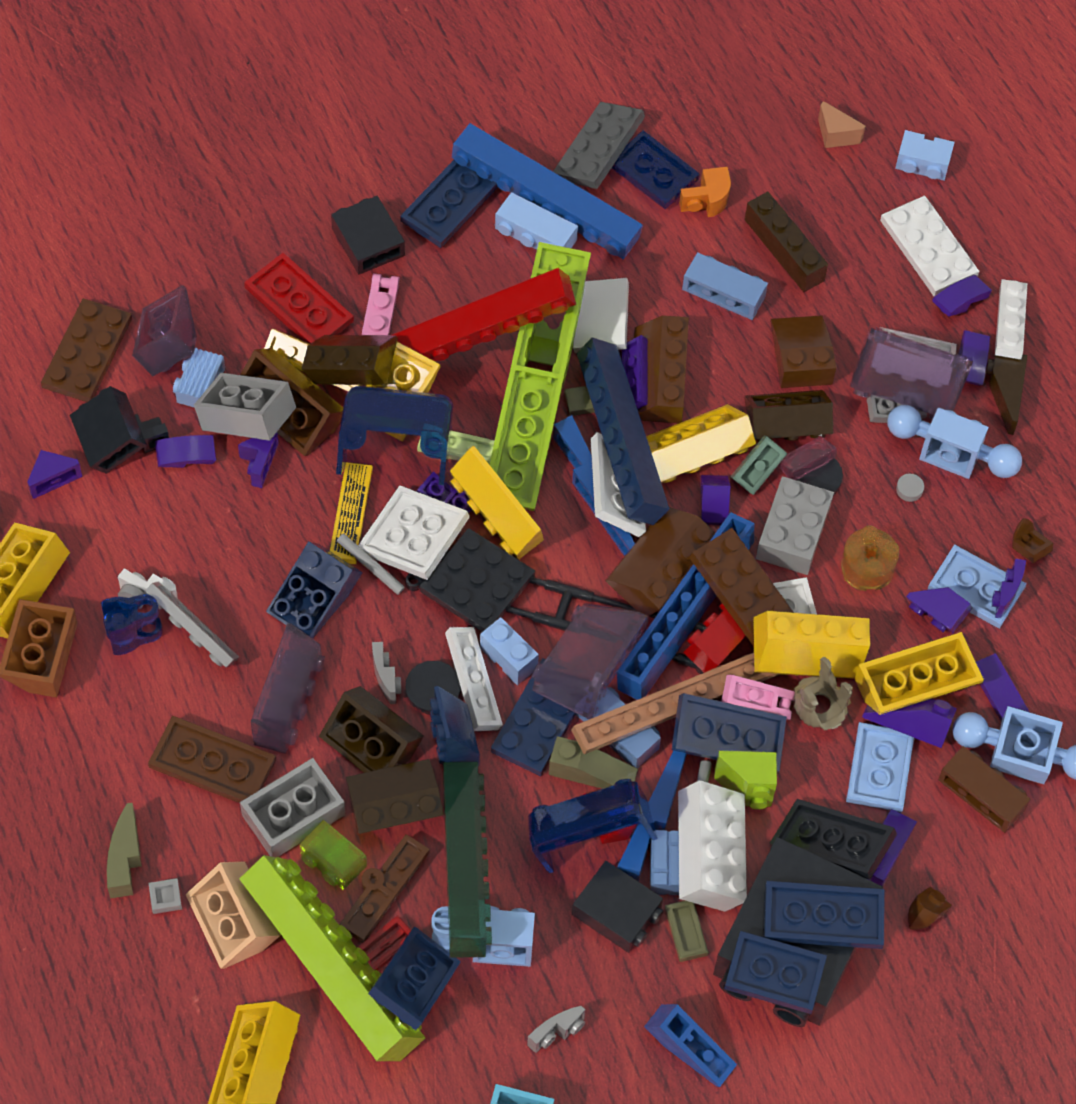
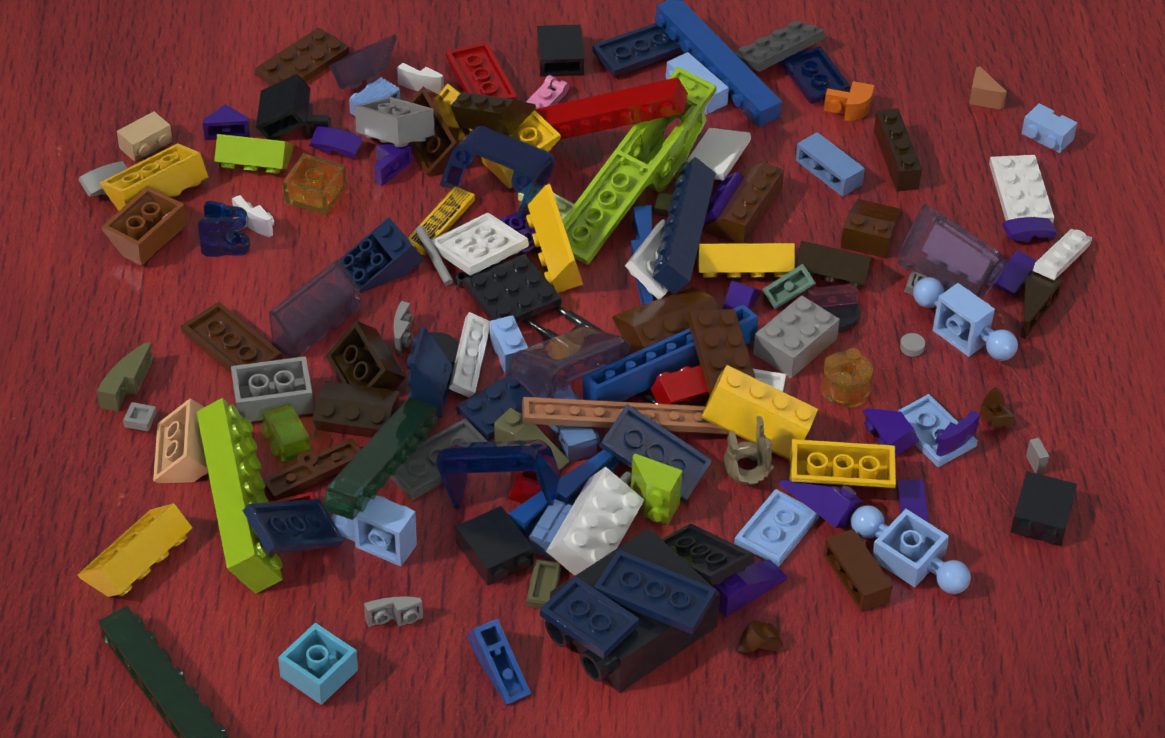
camera: 25 degrees right, 15 degrees down
(103, 500) = (253, 153): none -> lime slope
(196, 520) = (314, 184): none -> clear yellow brick
(199, 632) = (265, 239): light grey plate -> none
(243, 331) = (415, 79): none -> white slope
(507, 812) = (420, 471): none -> dark grey tile
(757, 696) = (695, 435): bright pink plate -> none

